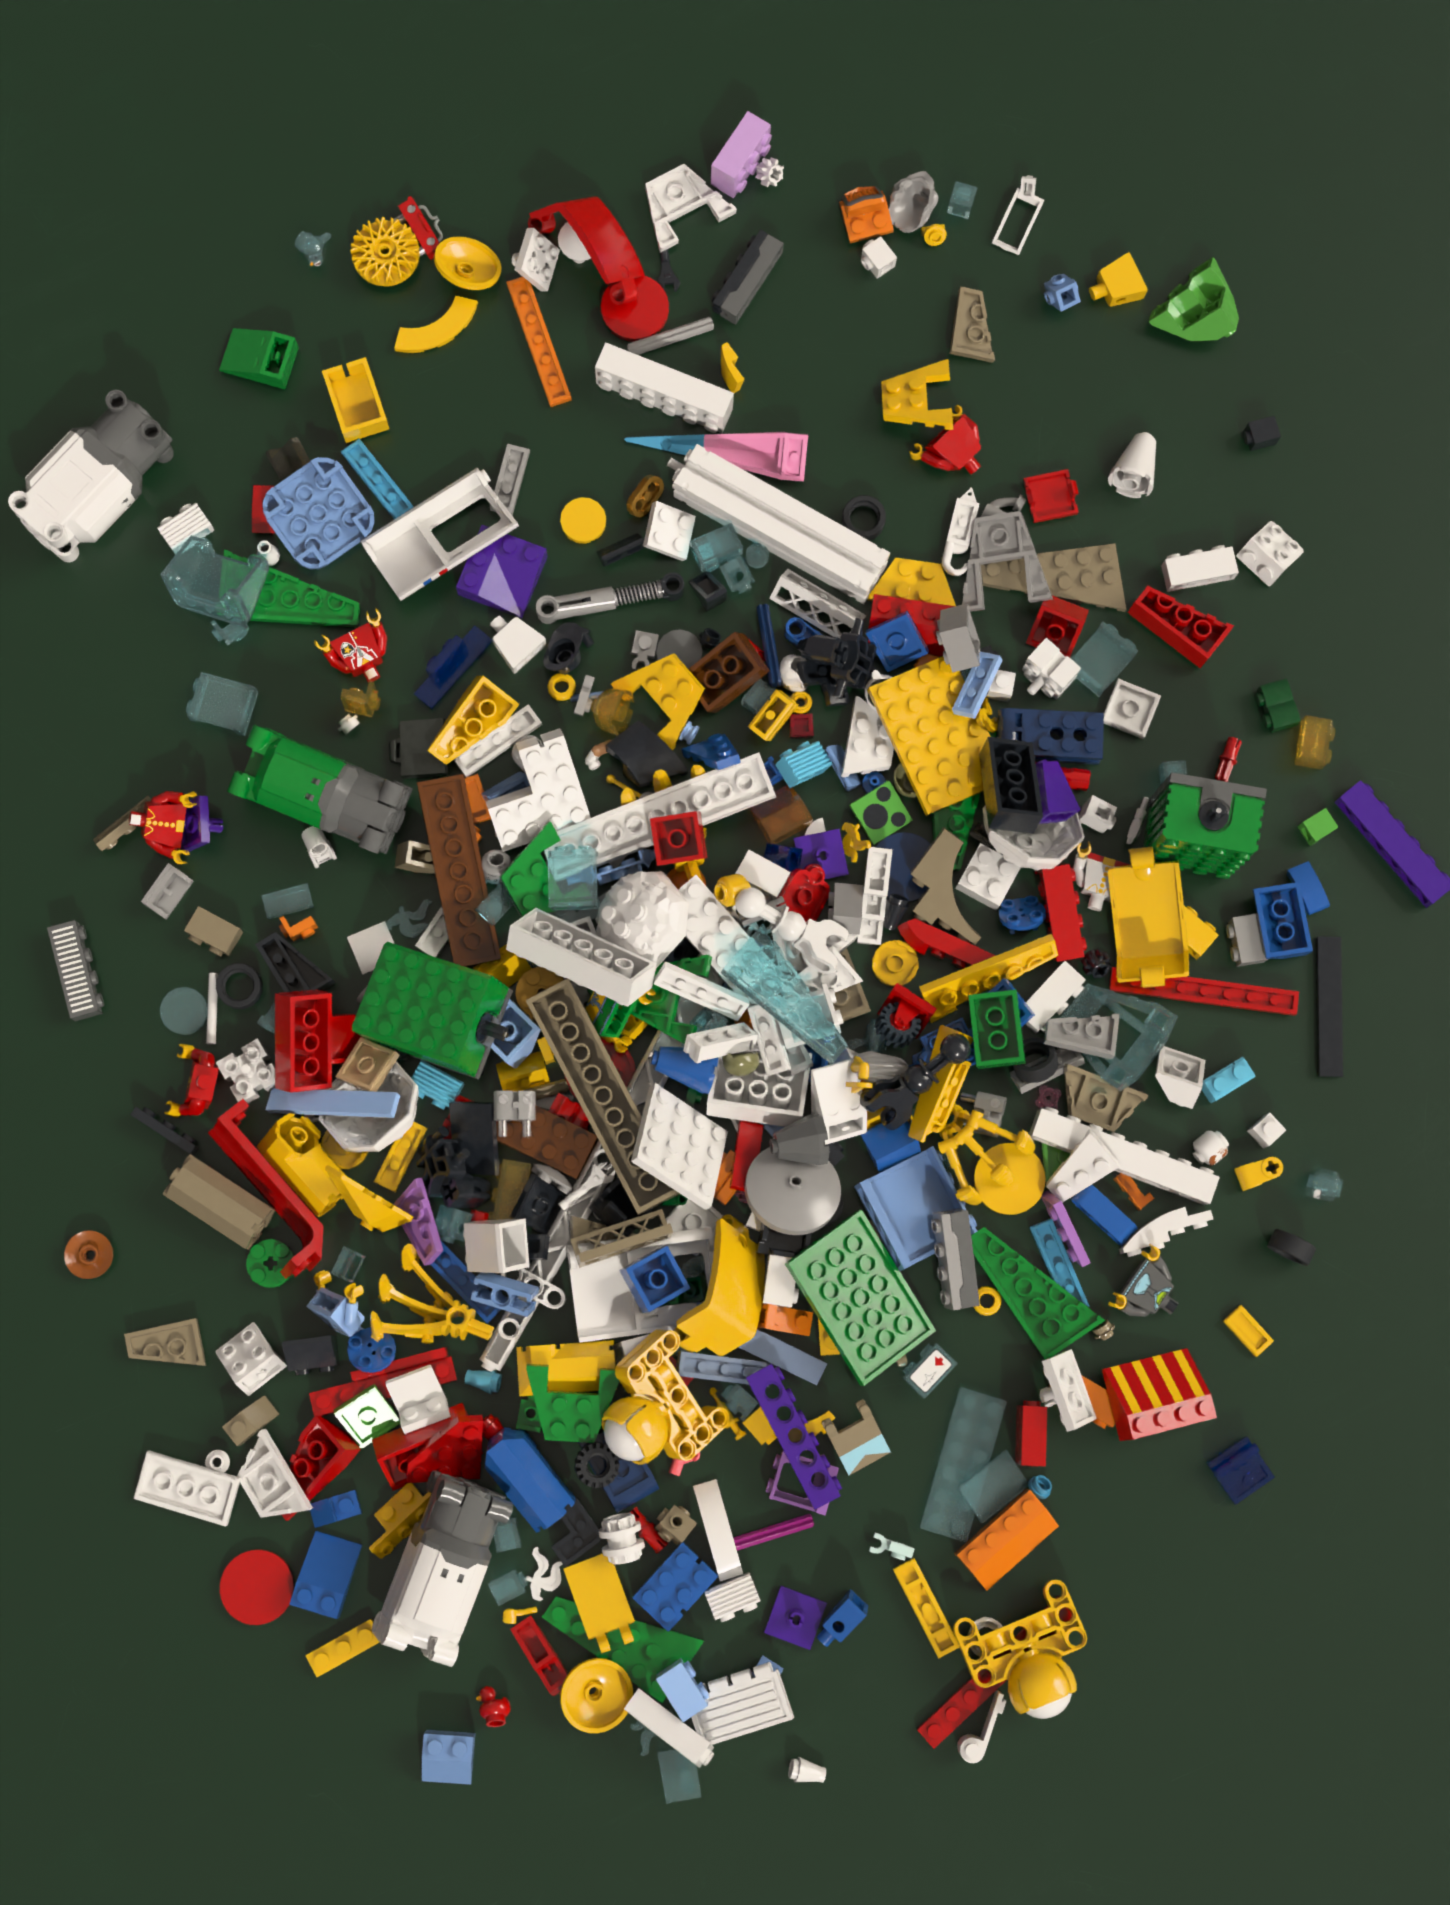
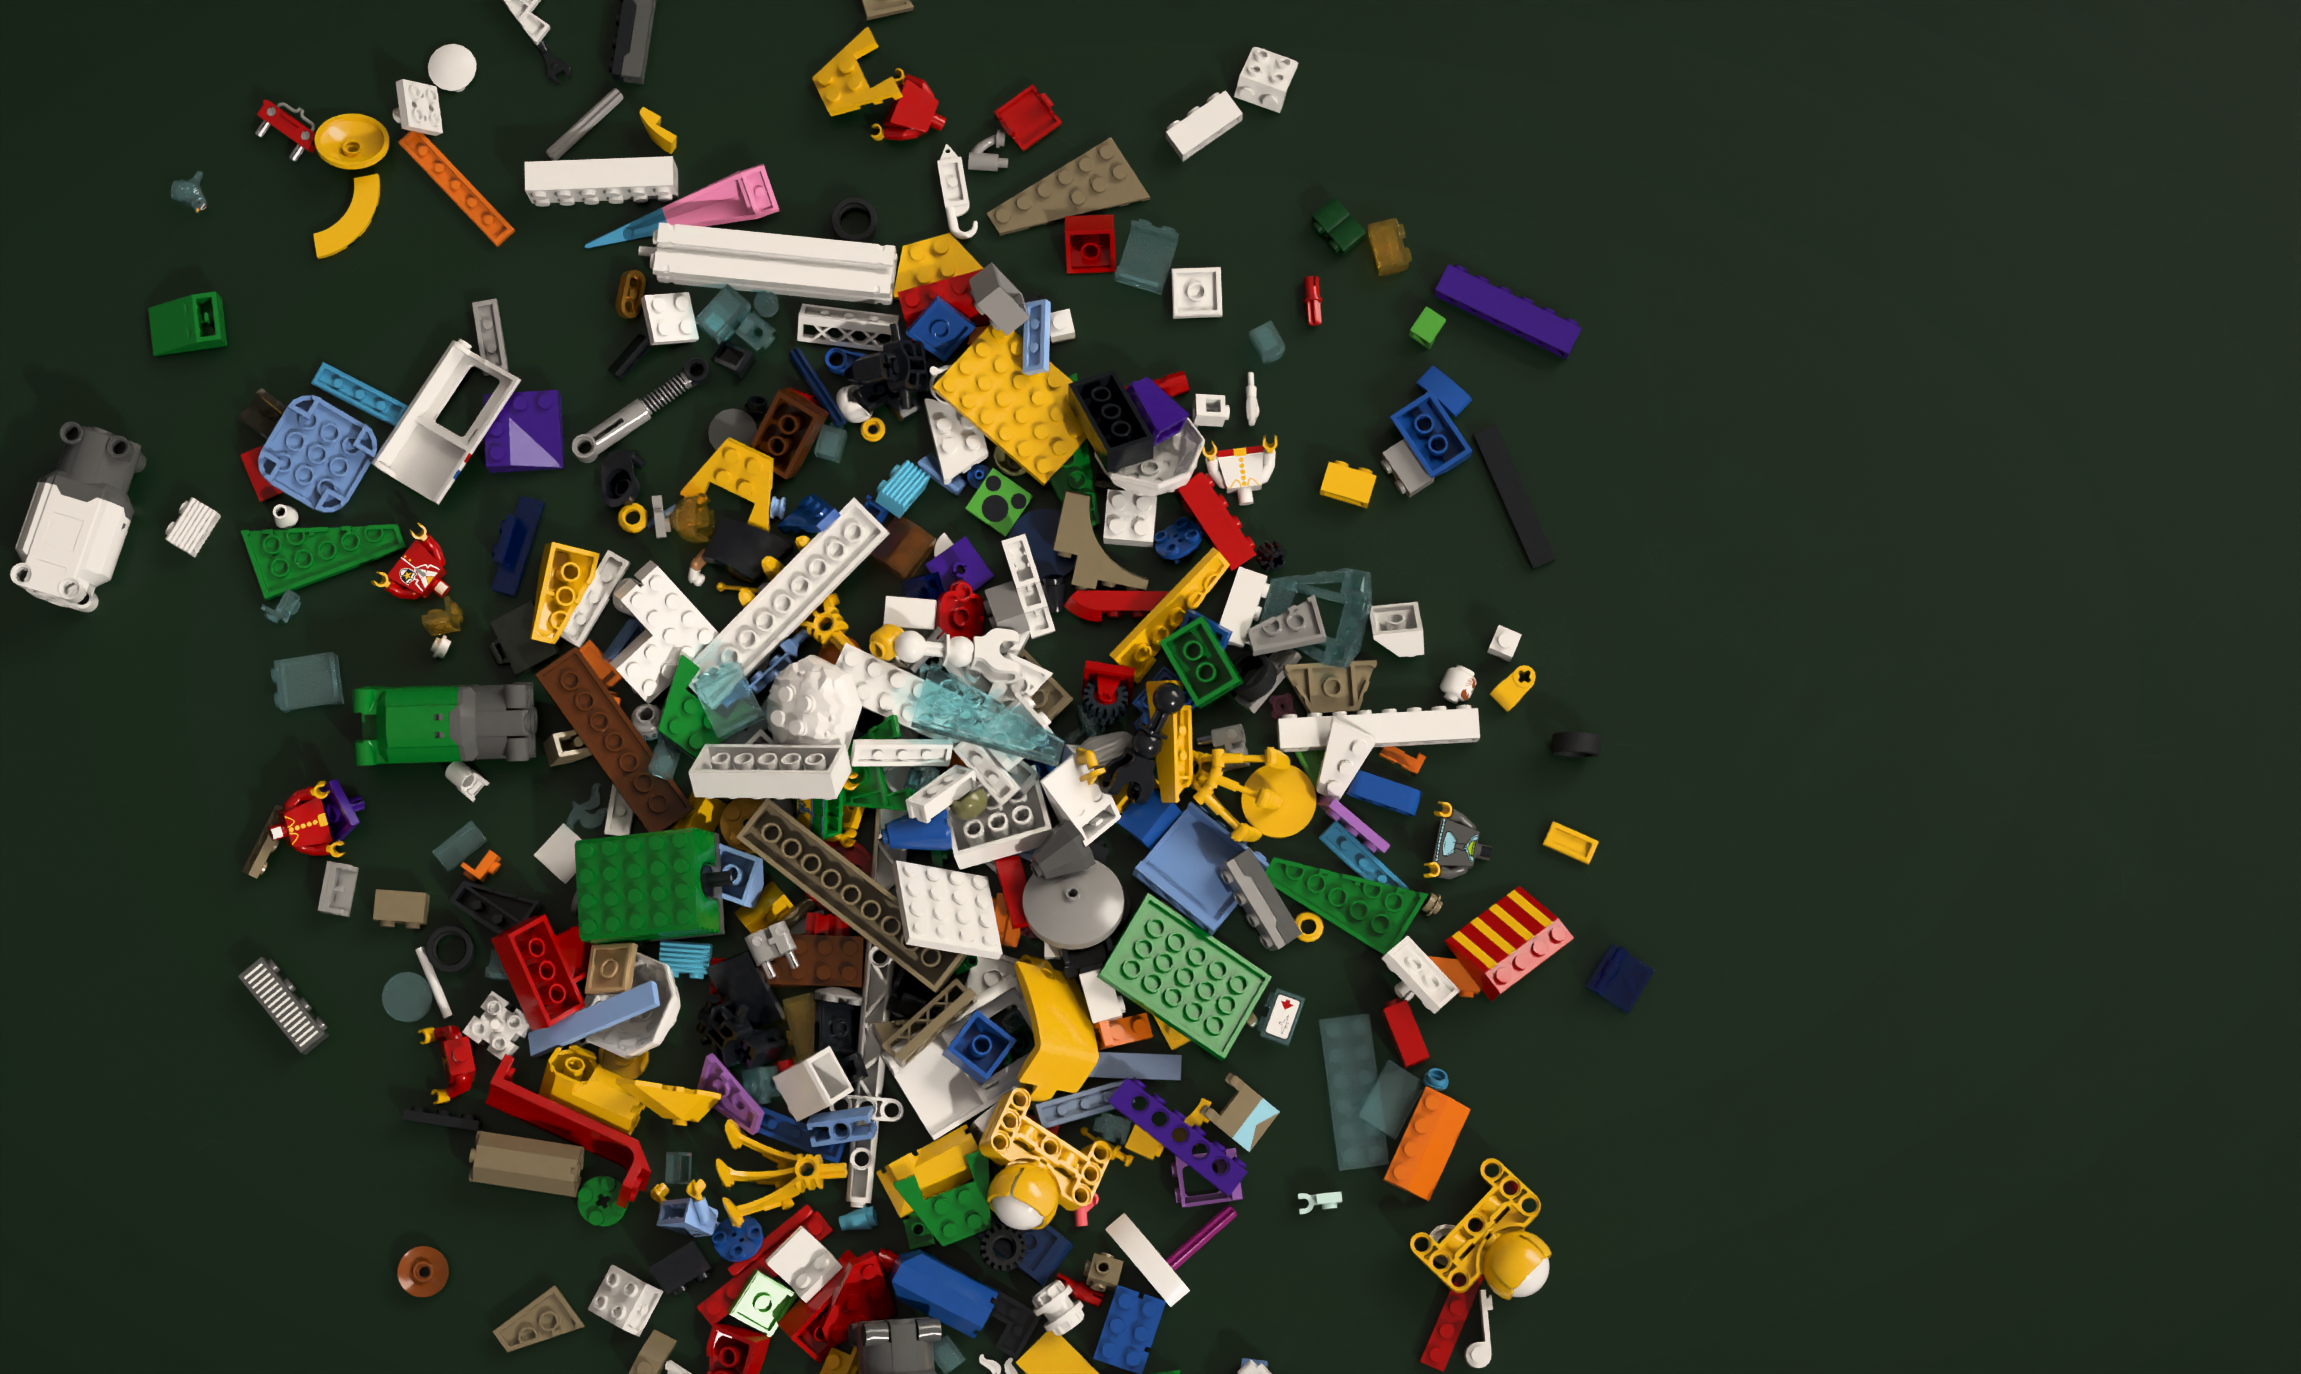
camera: 15 degrees left, 0 degrees up
(215, 583) = (247, 568): clear light blue windscreen -> none
(356, 400) = (303, 326): yellow piece -> none
(381, 238) = (253, 154): yellow wheel -> none
(400, 1157) = (682, 1044): yellow tile -> none
(516, 642) = (569, 493): white torso -> none
(546, 1050) = (777, 877): yellow plate -> none
(583, 520) = (580, 345): yellow tile -> none
(596, 1178) = (880, 977): white piece -> none
(602, 239) = (476, 61): red panel -> none
(638, 318) = (536, 111): red tile -> none
(644, 647) = (696, 443): light grey plate -> none
(678, 838) = (813, 615): red brick -> none
(732, 1596) = (1189, 1315): white brick -> none
(773, 715) = (852, 454): yellow brick -> none
(795, 1617) = (1257, 1308): dark purple tile -> none
(801, 726) = (884, 452): dark red tile -> none
(849, 1611) = (1306, 1279): blue torso -> none
(852, 839) = (983, 543): yellow piece -> none
(895, 963) = (1077, 642): yellow tile -> none
(926, 1607) = (1377, 1243): yellow plate -> none
(983, 717) = (1056, 365): yellow piece -> none
(999, 540) = (998, 183): light grey wing -> none
(1036, 726) = (1112, 350): dark blue hinge -> none
(1049, 669) = (1101, 289): white brick -> none
(1136, 467) = (1097, 53): white cone -> none
(1148, 919) = (1302, 491): yellow panel -> none
(1157, 1230) = (1441, 785): white slope -> none
(1180, 625) = (1209, 190): red wedge -> none
(1204, 823) = (1312, 377): green piece -> none
(1215, 993) = (1386, 536): red plate -> none
(1227, 1079) = (1445, 611): medium azure brick -> none
(1325, 1184) = (1583, 670): clear light blue head -> none

